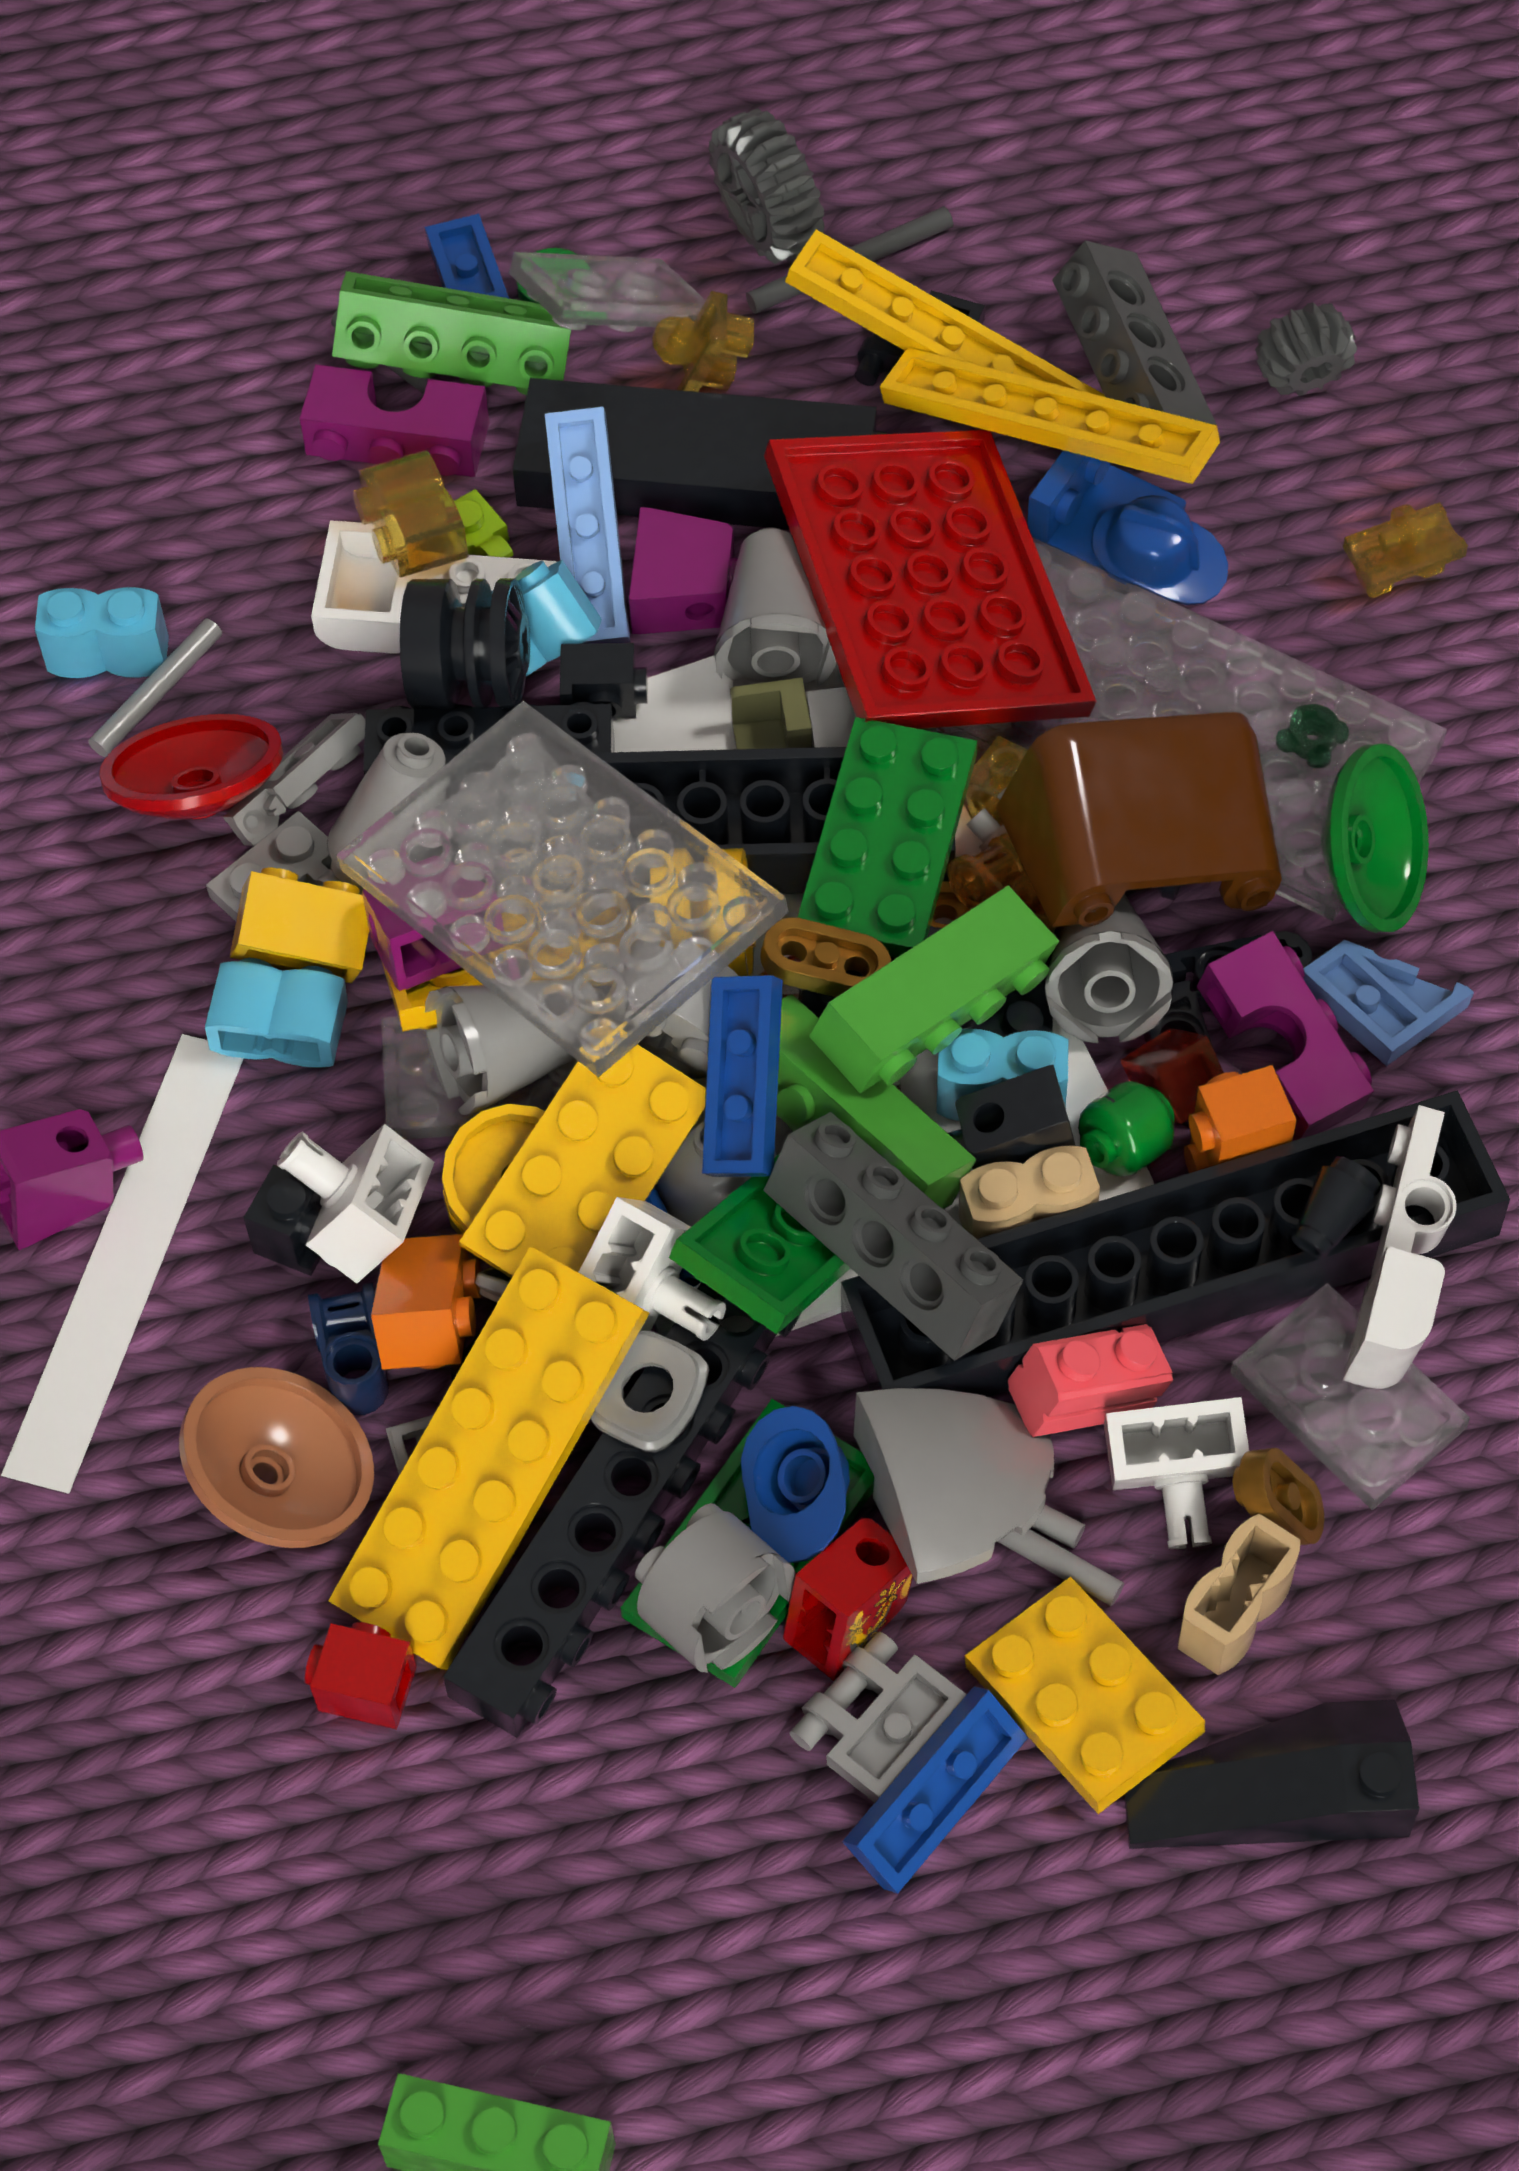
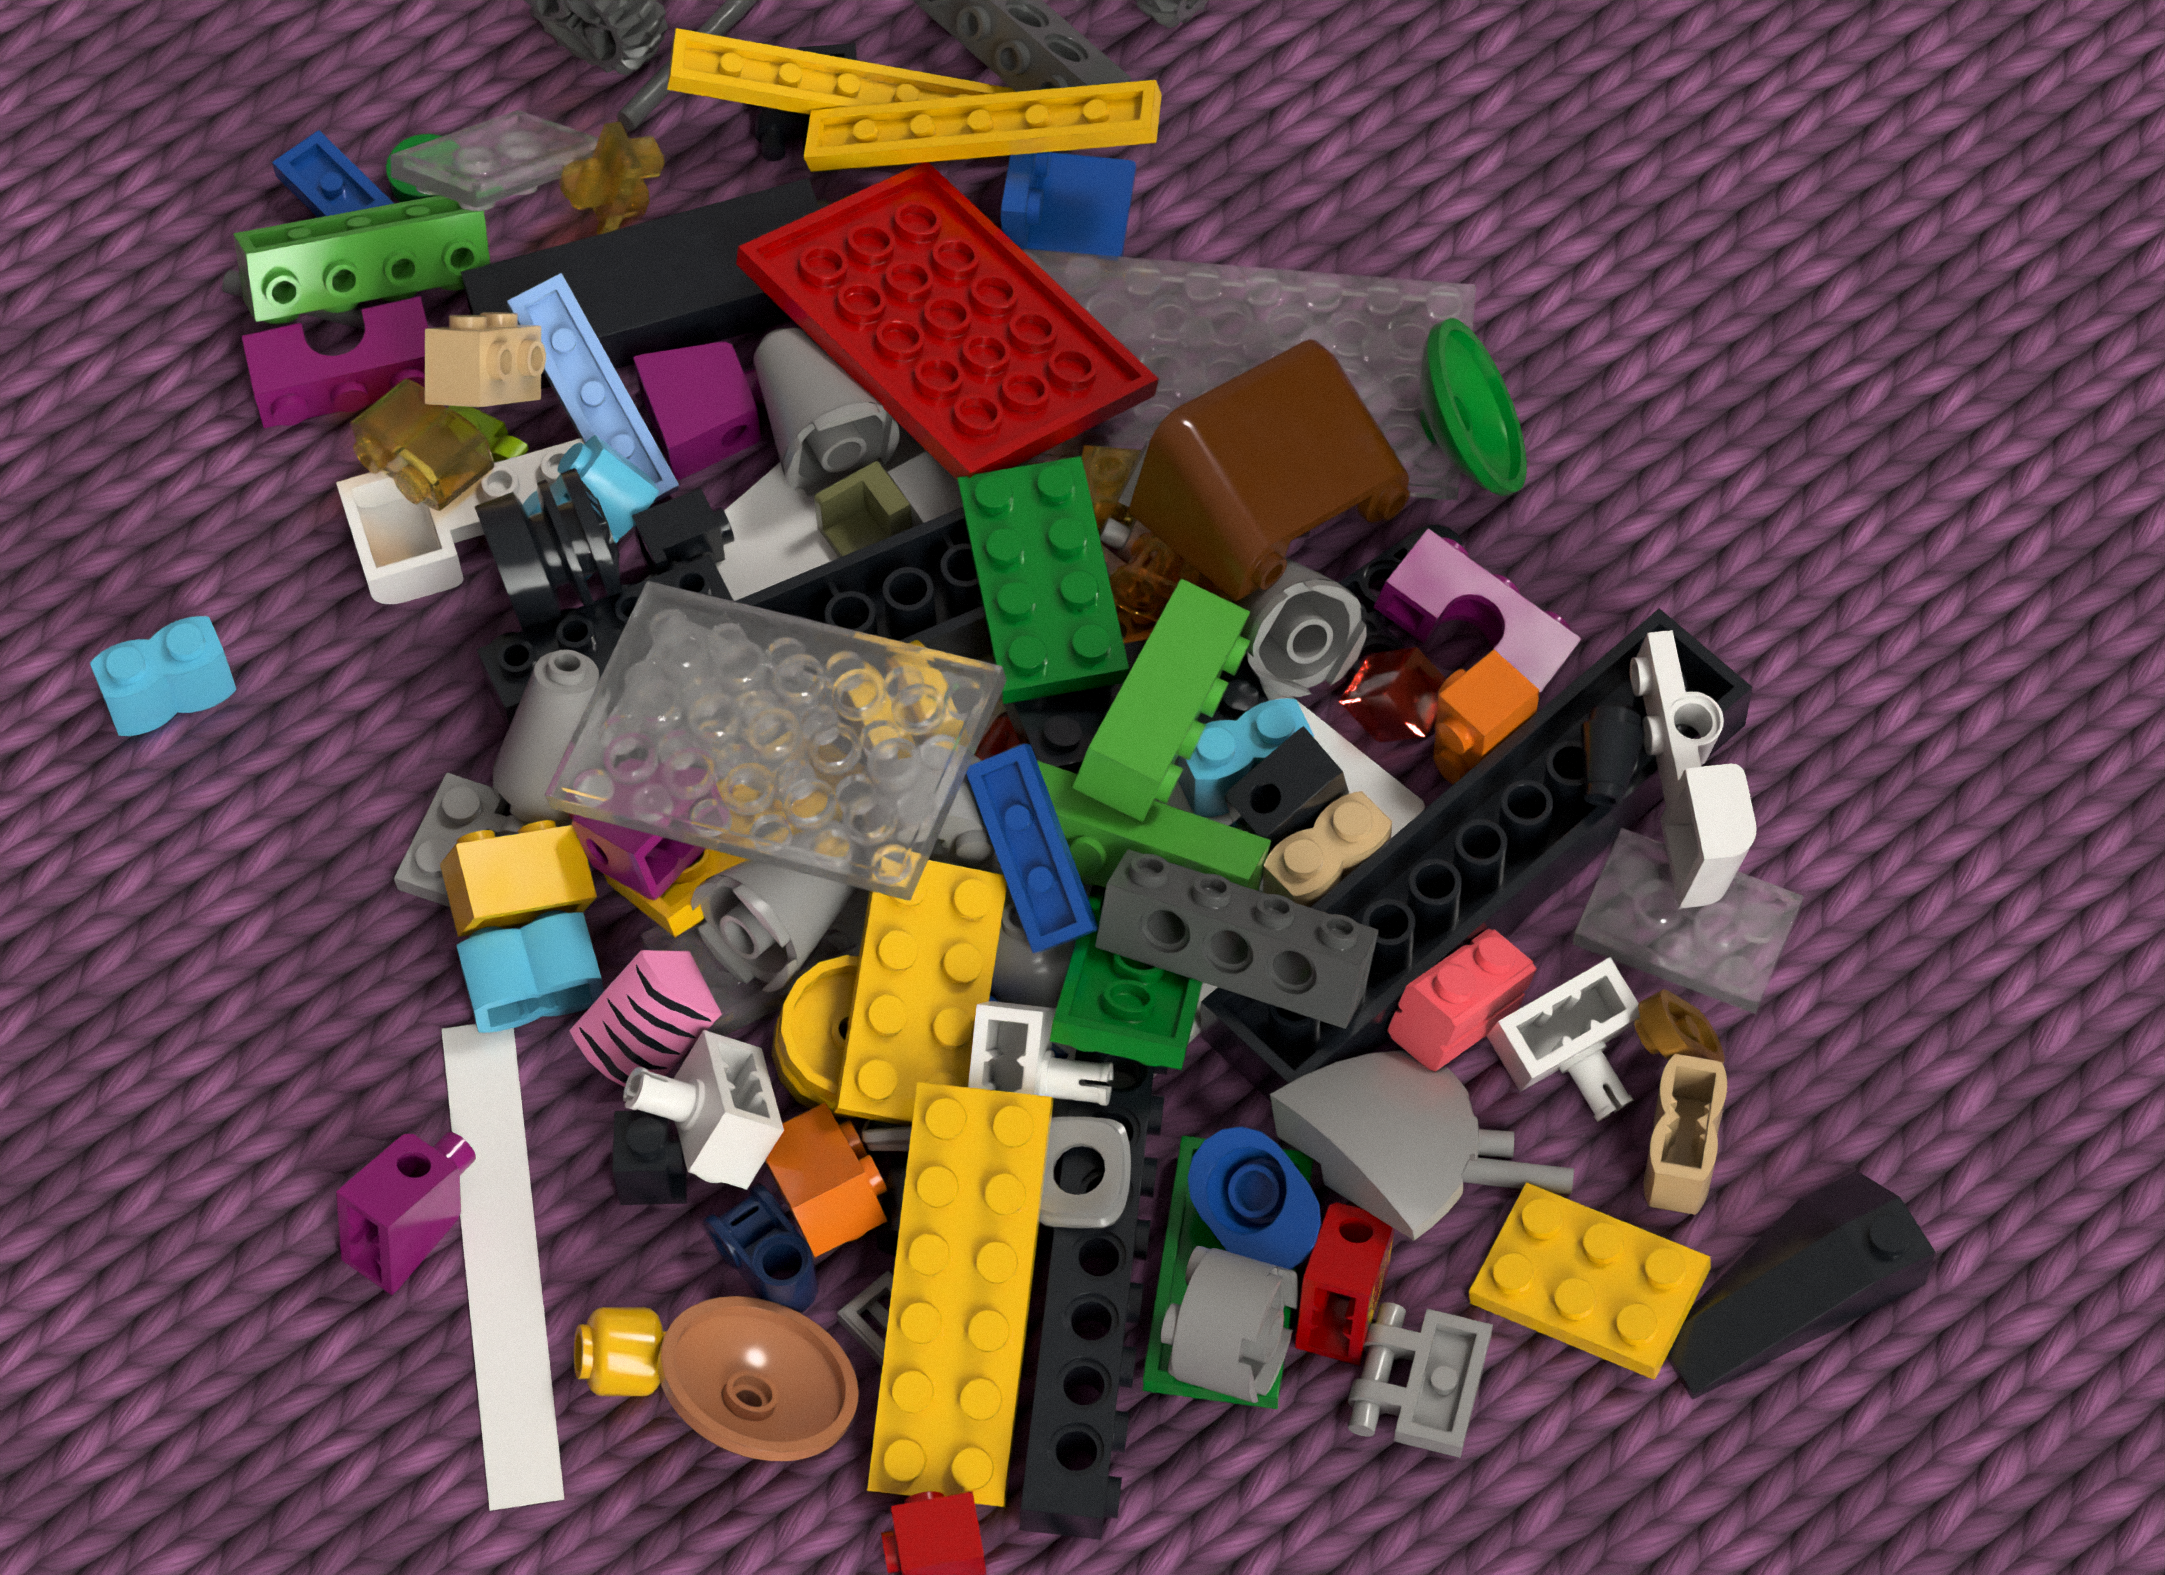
camera: 25 degrees left, 0 degrees up
(155, 687) = (238, 709): light grey bar -> none
(172, 1377) = (619, 1351): none -> yellow head
(192, 765) = (326, 767): red dish -> none
(293, 782) = (427, 738): light grey hinge -> none
(347, 1092) = (647, 1016): none -> bright pink brick
(493, 459) = (483, 361): none -> tan brick
(824, 955) = (1045, 709): pearl gold plate -> none
(935, 1789) = (1504, 1420): blue plate -> none
(1127, 1128) = (1382, 758): green head -> none
(1160, 550) = (1134, 216): blue piece -> none
(1316, 721) = (1365, 321): clear green plate -> none
(1382, 999) = (1541, 553): medium blue wing -> none
(1404, 547) = (1357, 131): clear yellow hips -> none

